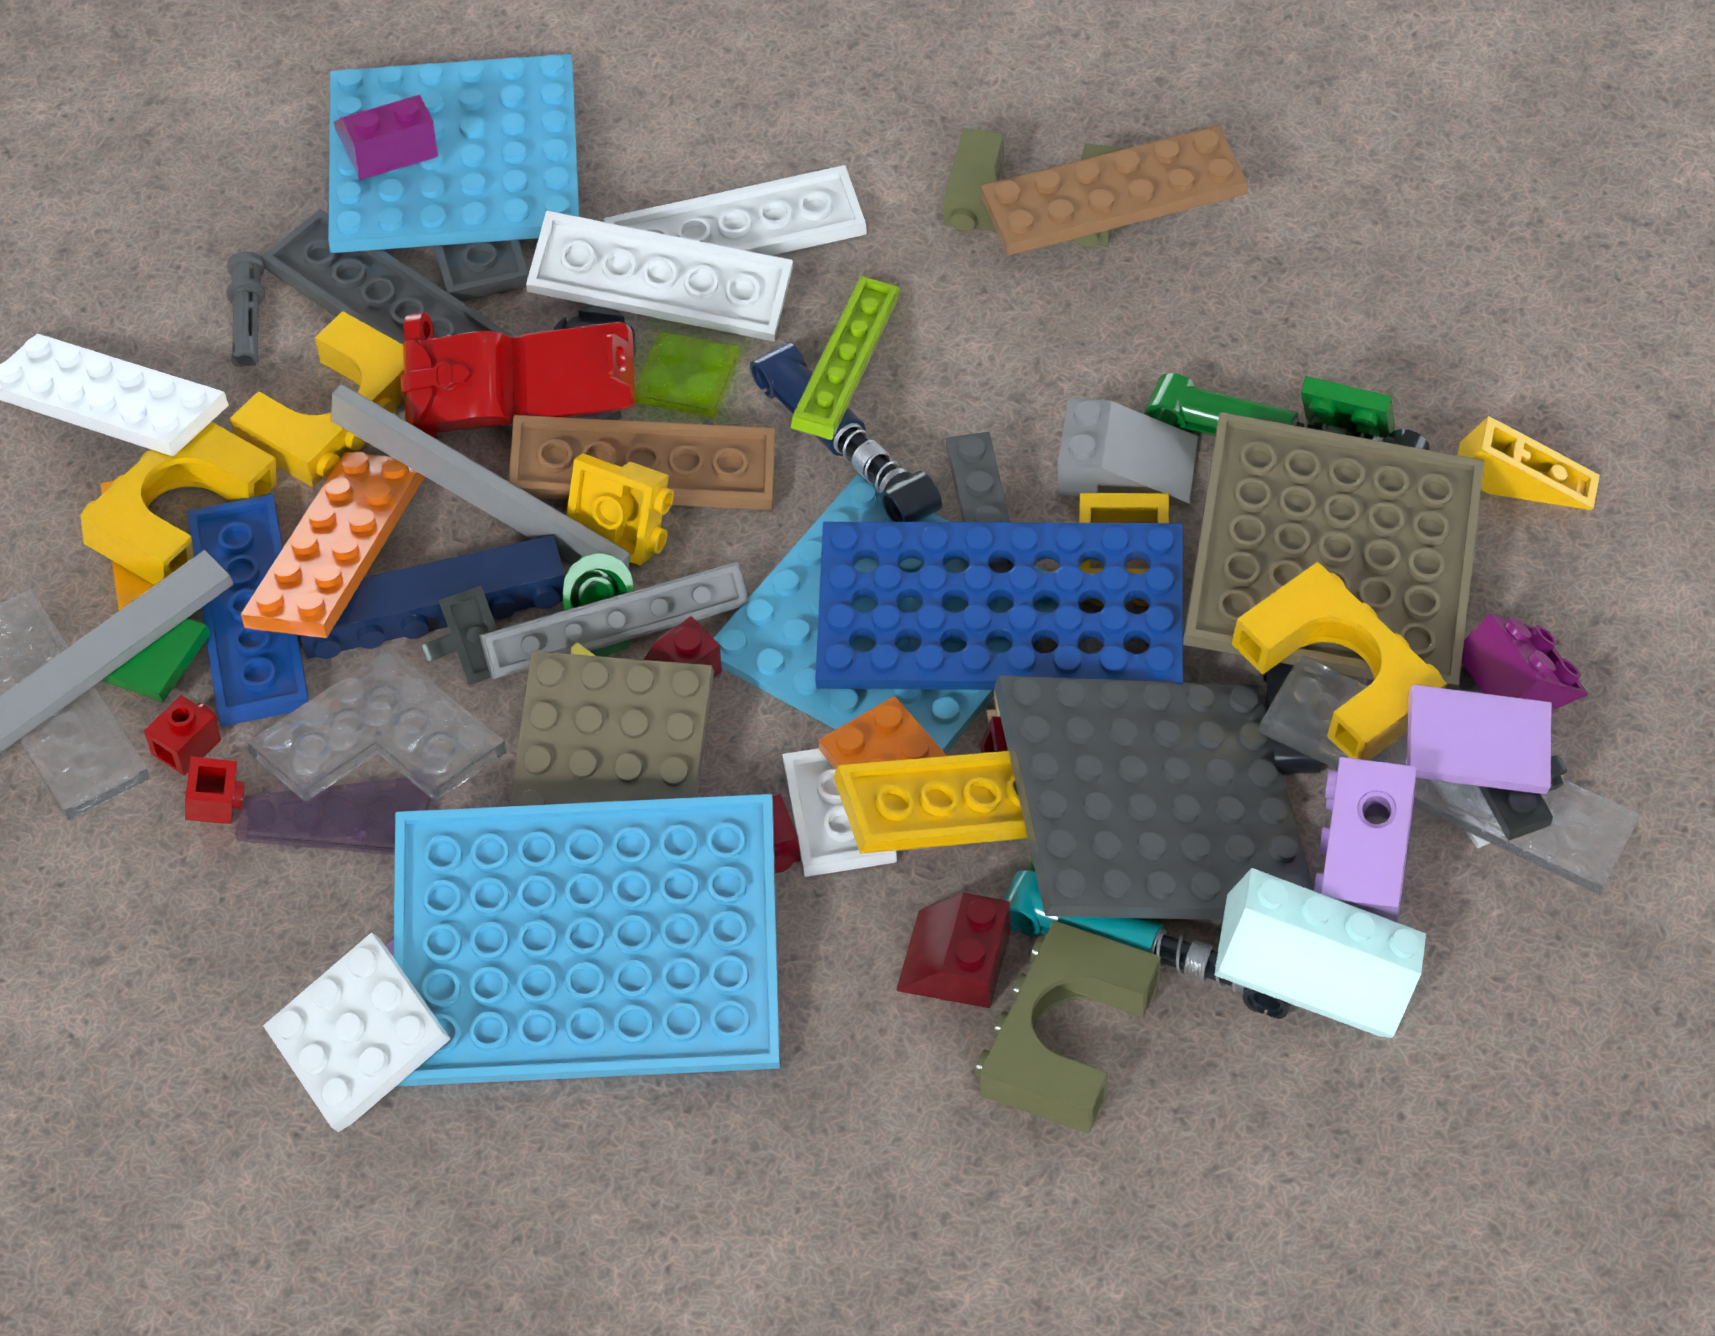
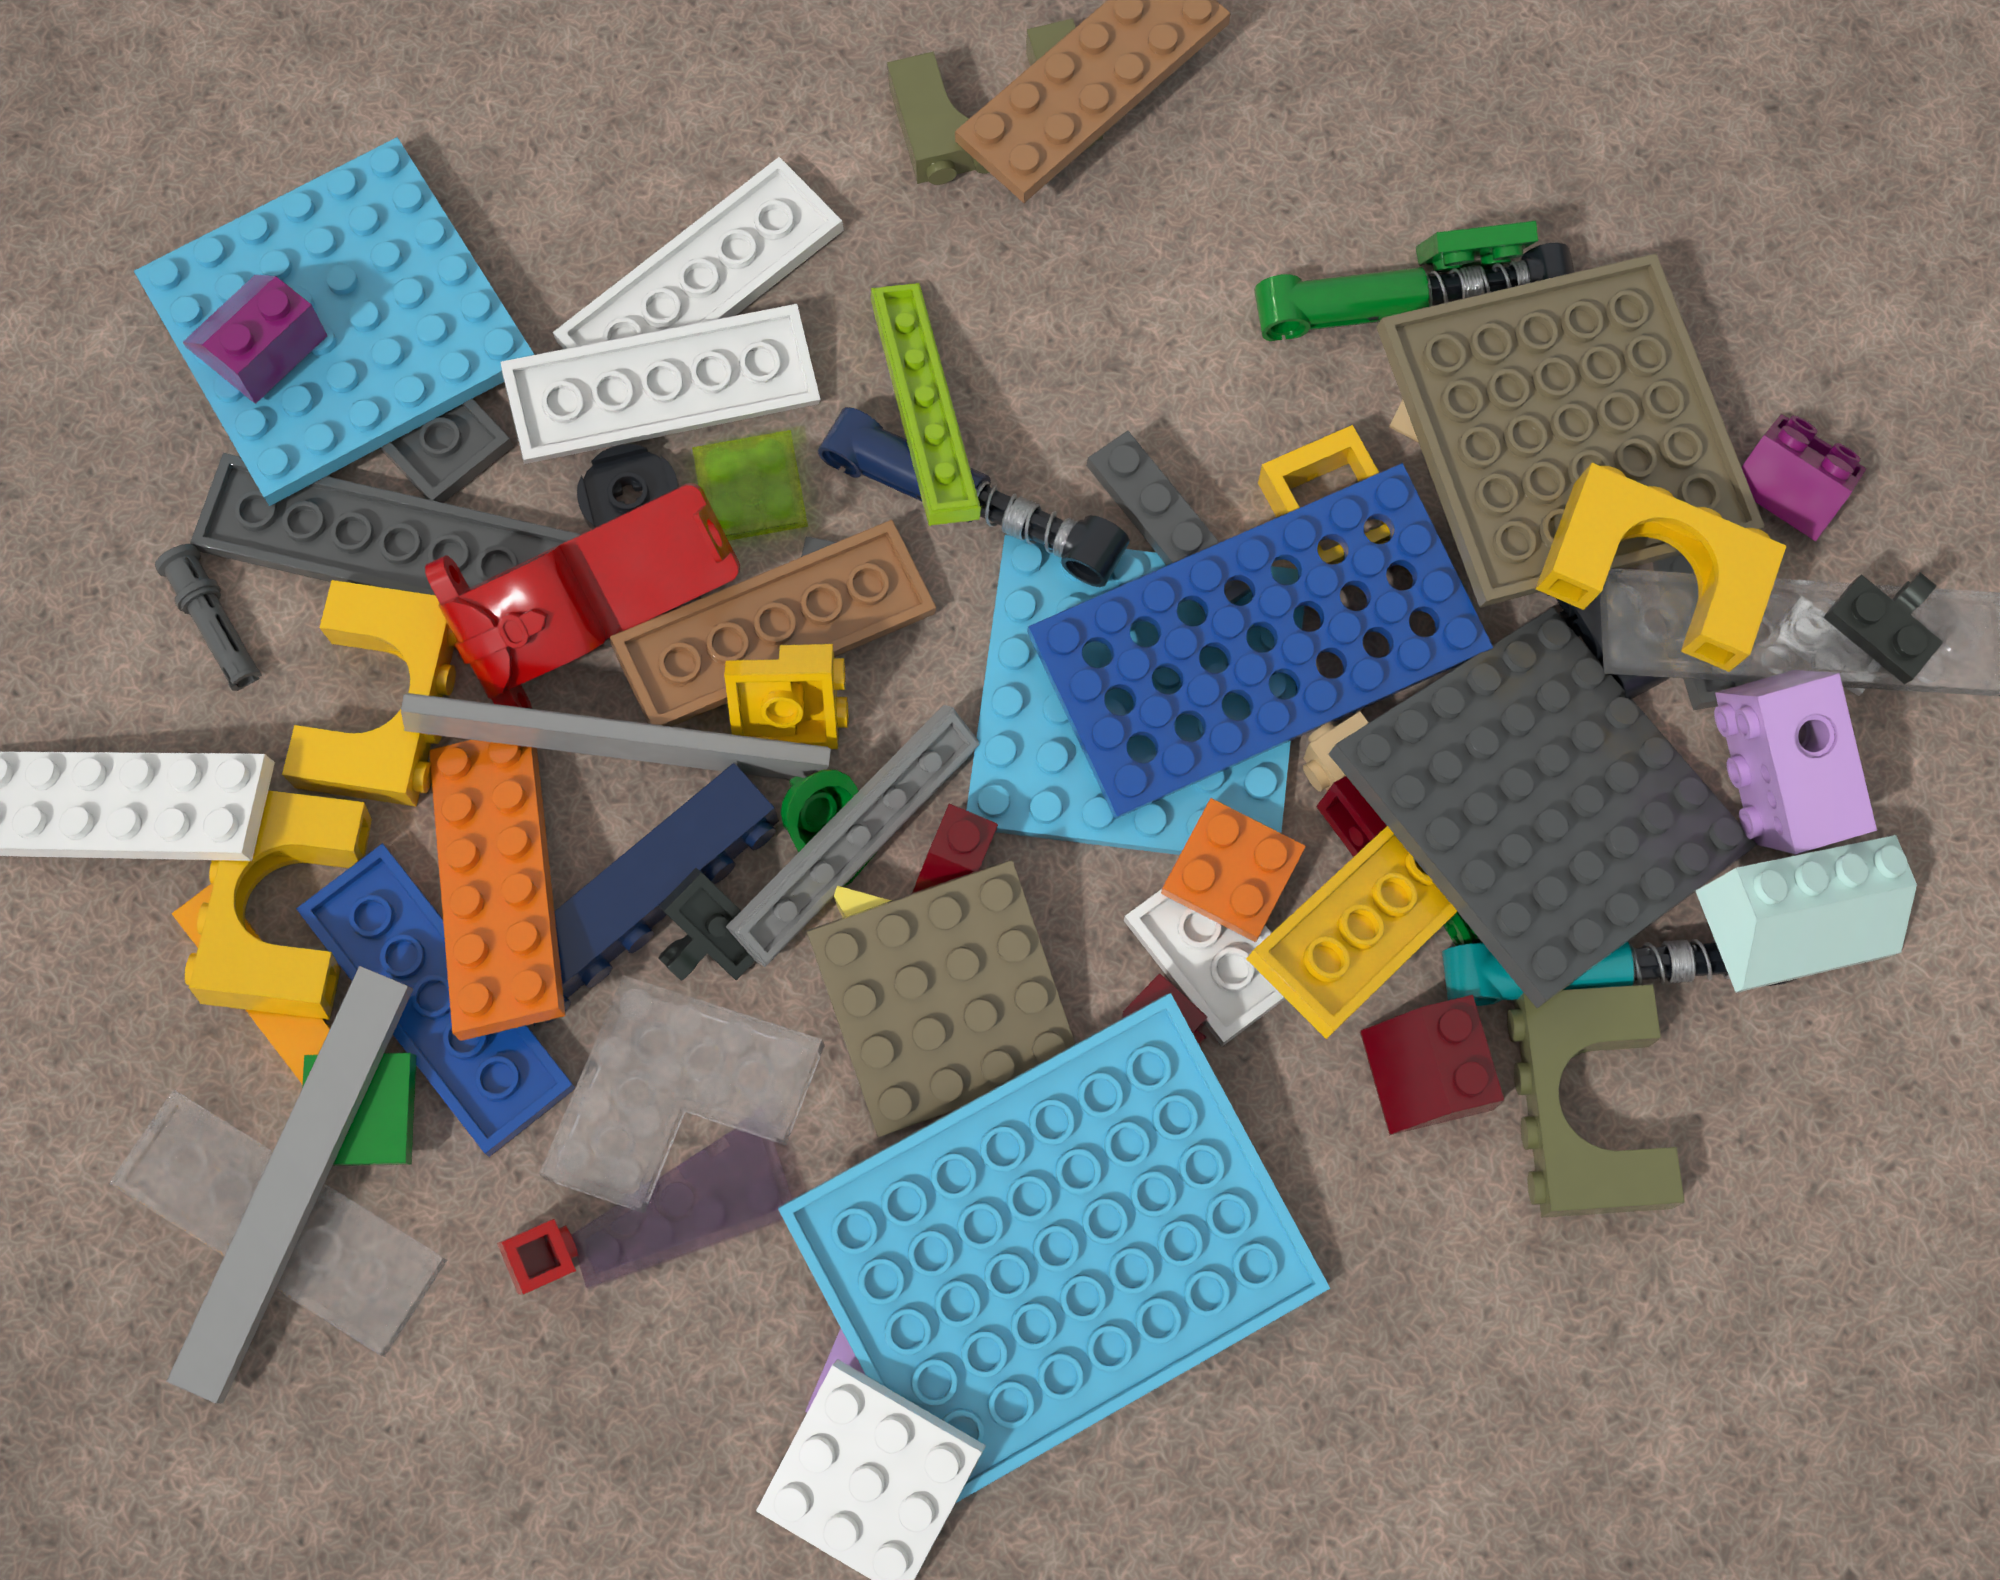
camera: 30 degrees left, 20 degrees up
(183, 732) = (458, 1193): red brick -> none
(1123, 452) = (1268, 392): light grey slope -> none
(1479, 739) = (1850, 597): lavender tile -> none
(1527, 469) = (1676, 232): yellow slope -> none

